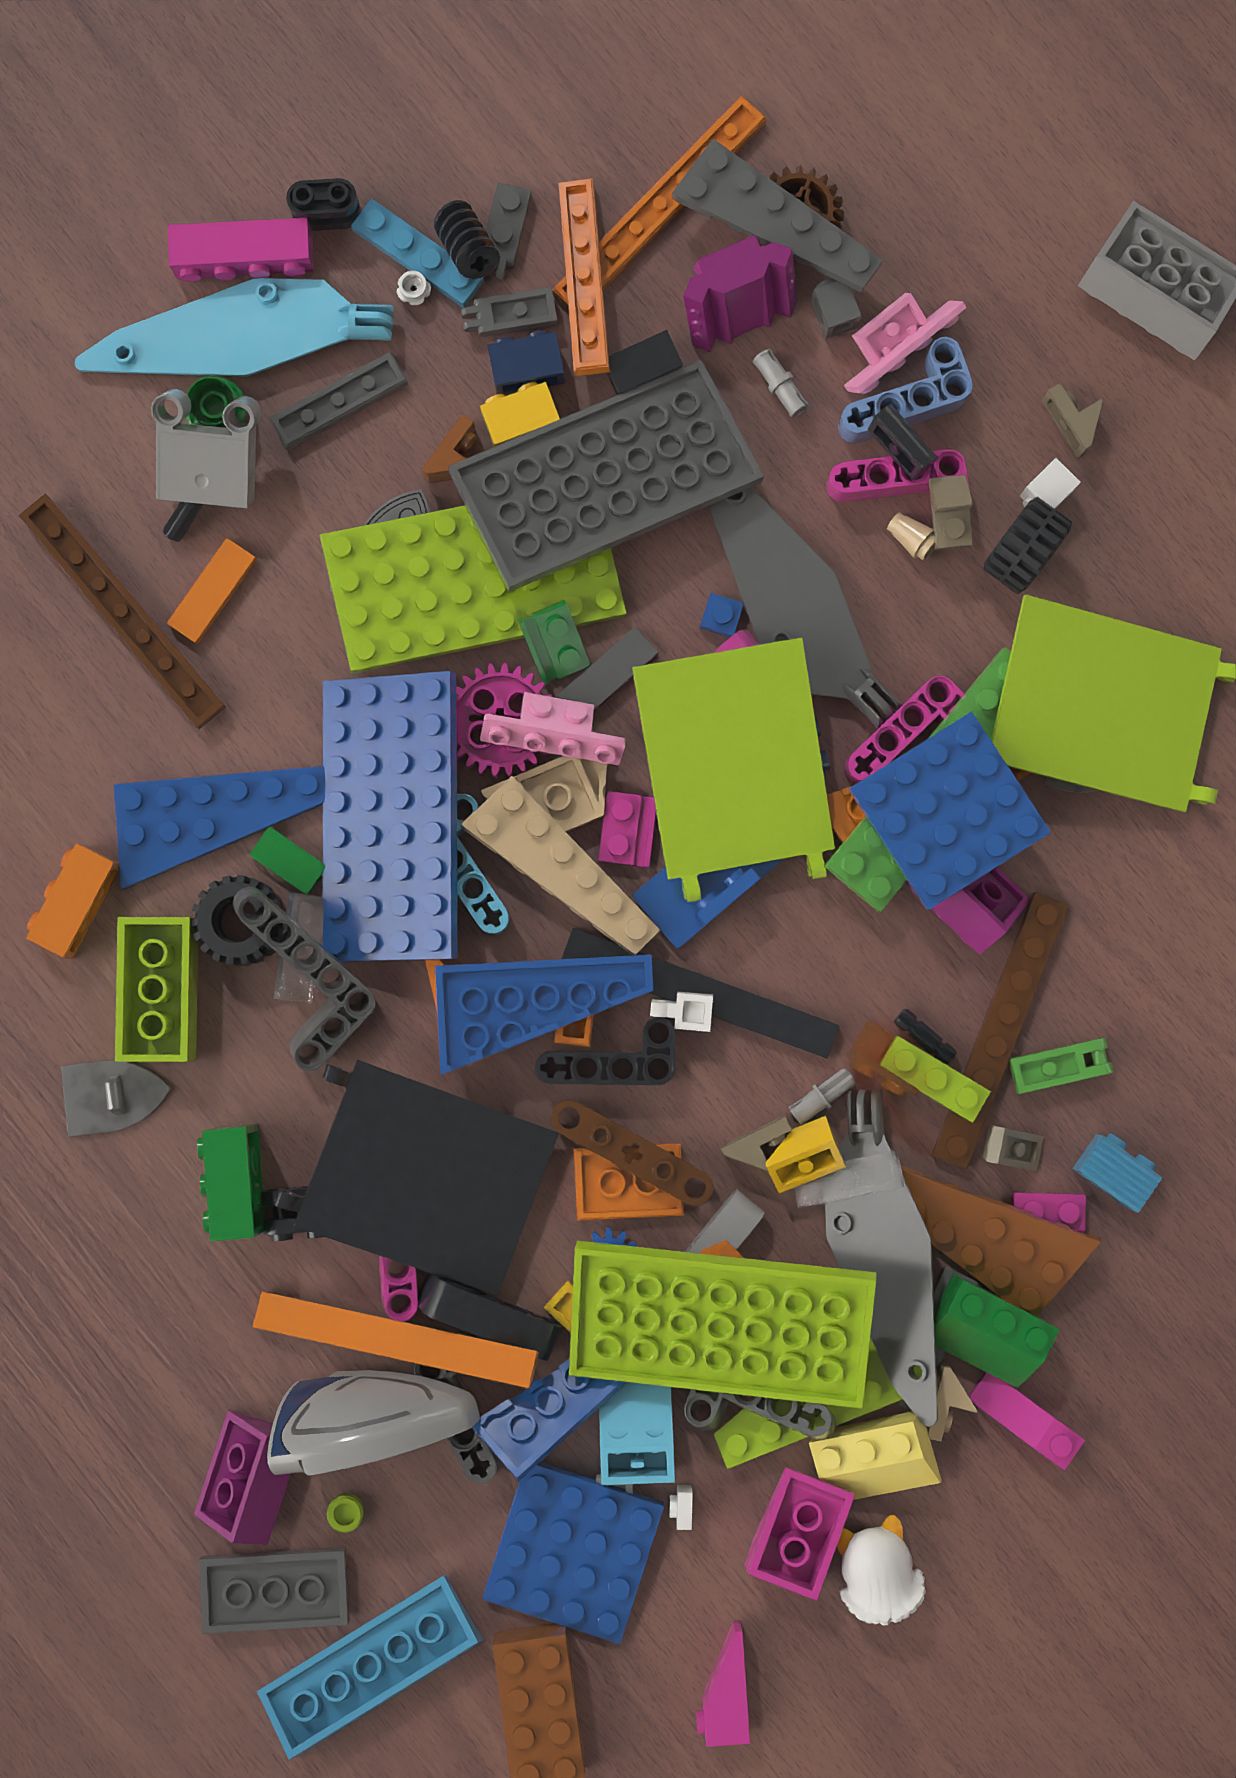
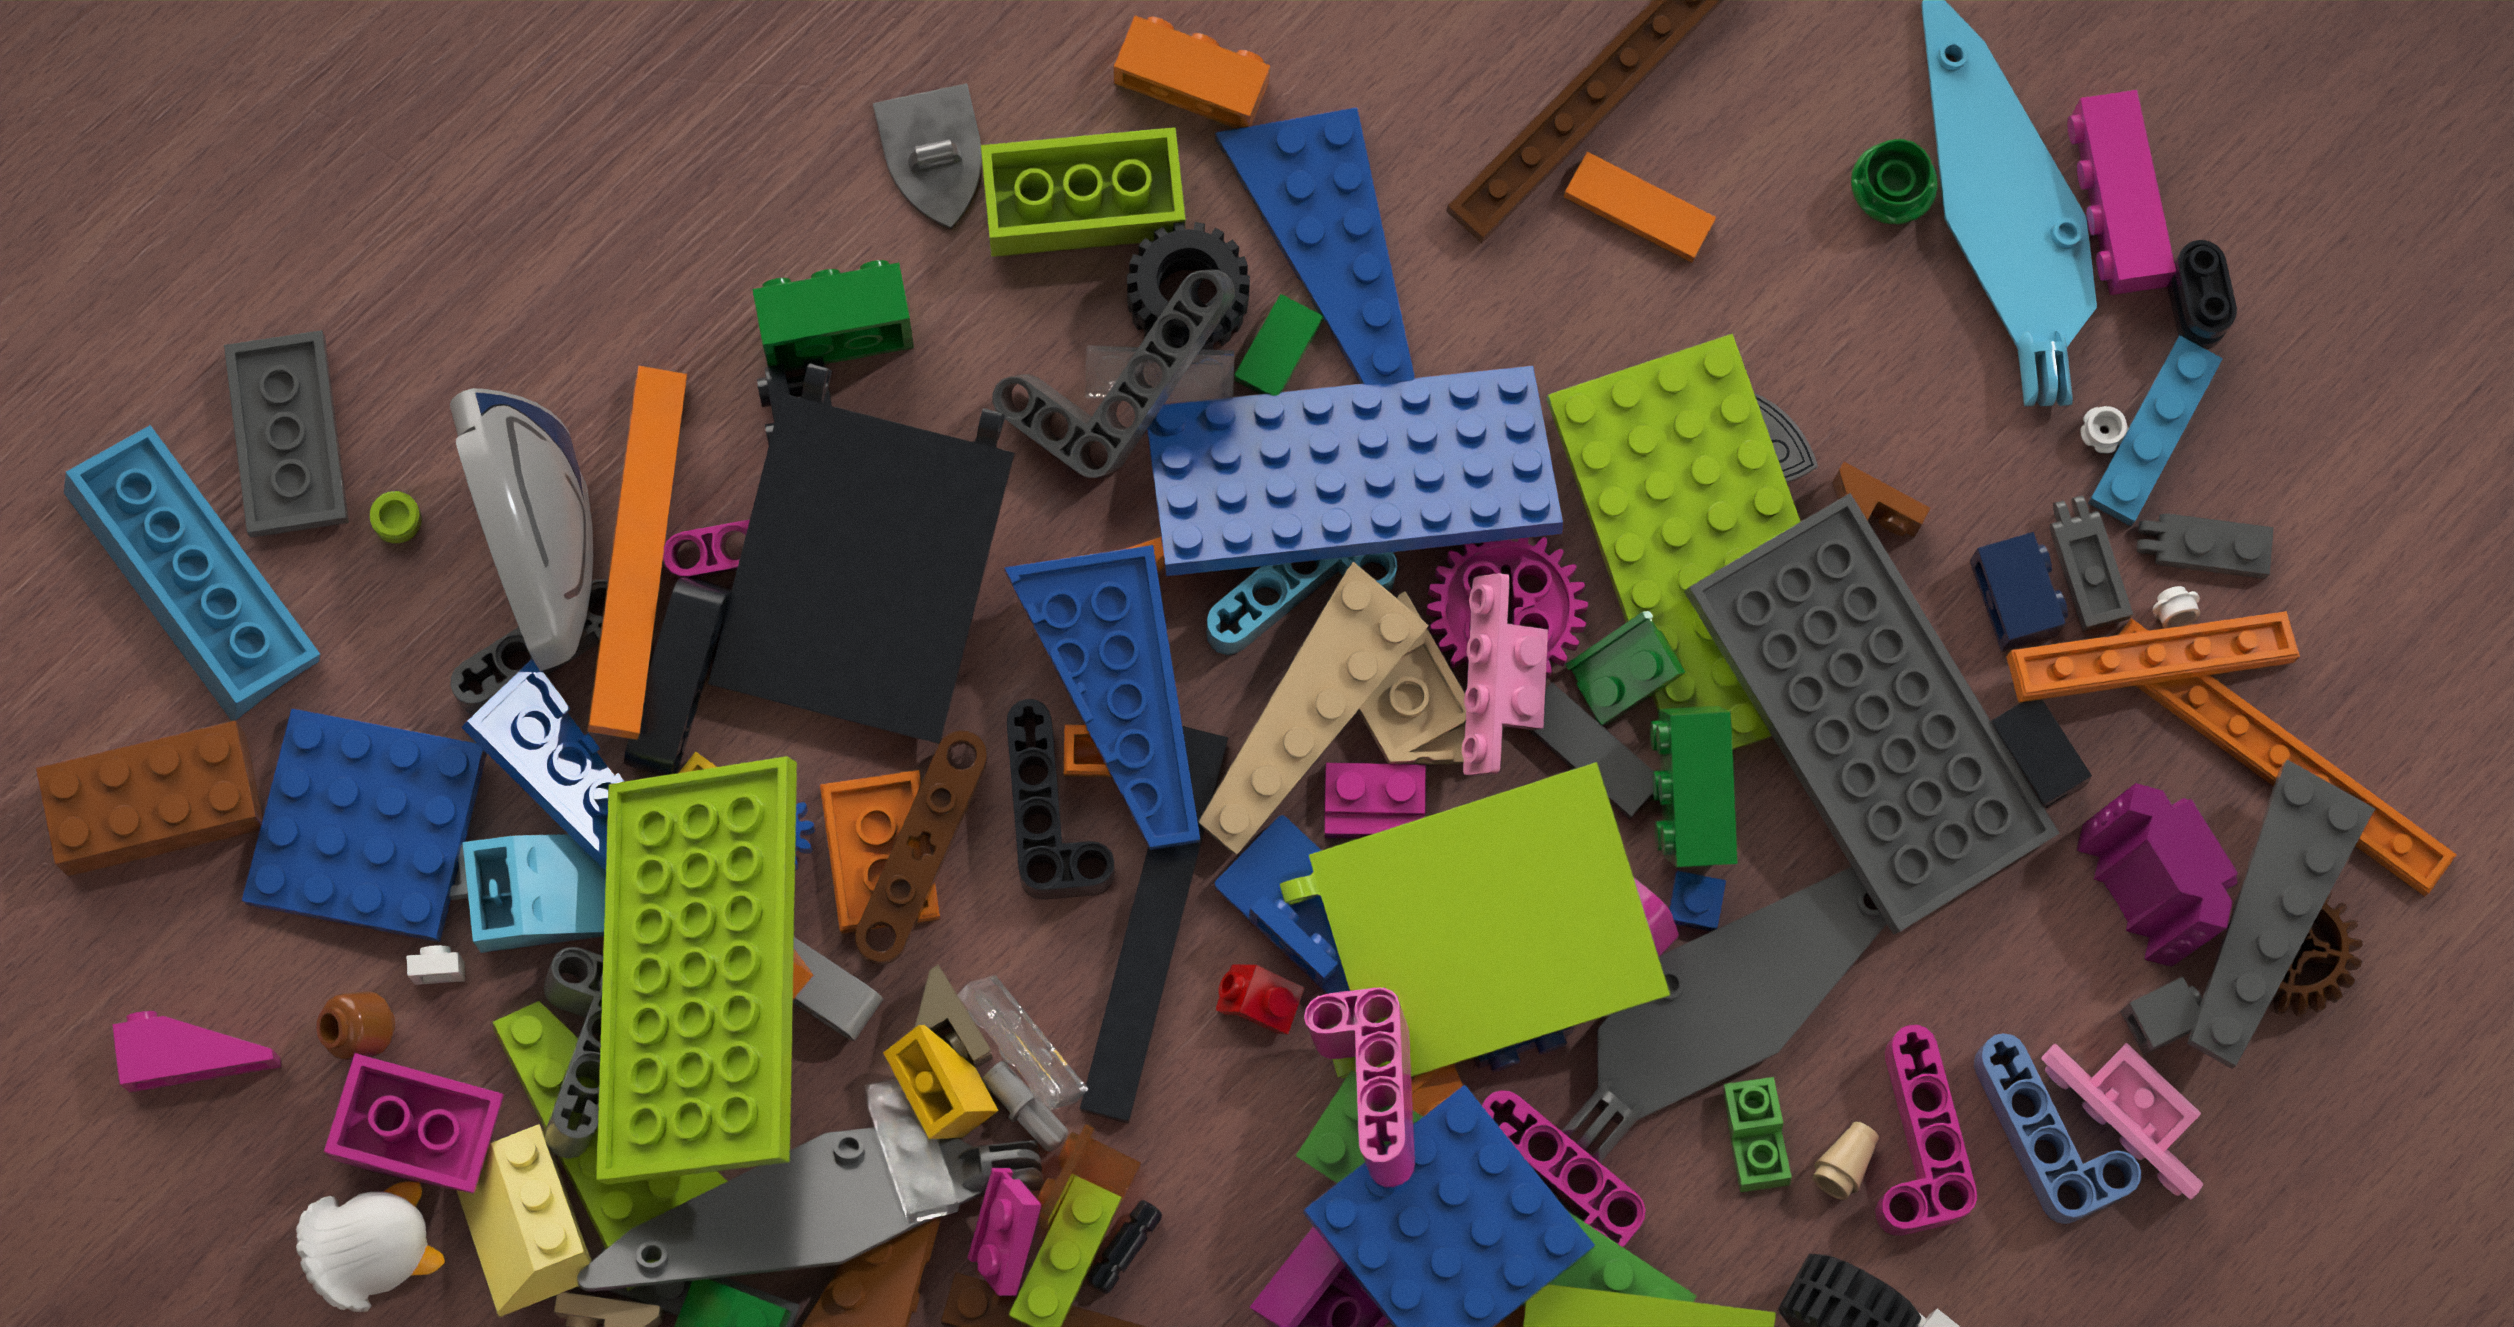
camera: 80 degrees right, 10 degrees down
(203, 462) = (1812, 170): light grey piece -> none
(239, 1488) = (414, 373): magenta slope -> none
(338, 401) = (1930, 347): dark grey tile -> none
(466, 240) = (2179, 488): black piece -> none
(518, 413) = (1944, 588): yellow brick -> none
(548, 257) = (2176, 607): none -> white plate
(649, 602) = (1695, 786): none -> green brick
(690, 1011) = (1127, 905): white plate -> none
(721, 1568) = (356, 1024): none -> dark orange head
(761, 925) = (1259, 997): none -> red bracket
(779, 1094) = (1022, 1043): none -> clear plate
(781, 383) = (2043, 950): light grey pin -> none
(848, 850) = (1376, 1086): none -> dark pink beam
(888, 595) = (1756, 1134): none -> bright green slope
(902, 442) = (1975, 1118): black brick -> none
(916, 1120) = (1004, 1231): none -> dark pink plate
(951, 512) = (1883, 1198): dark tan slope -> none

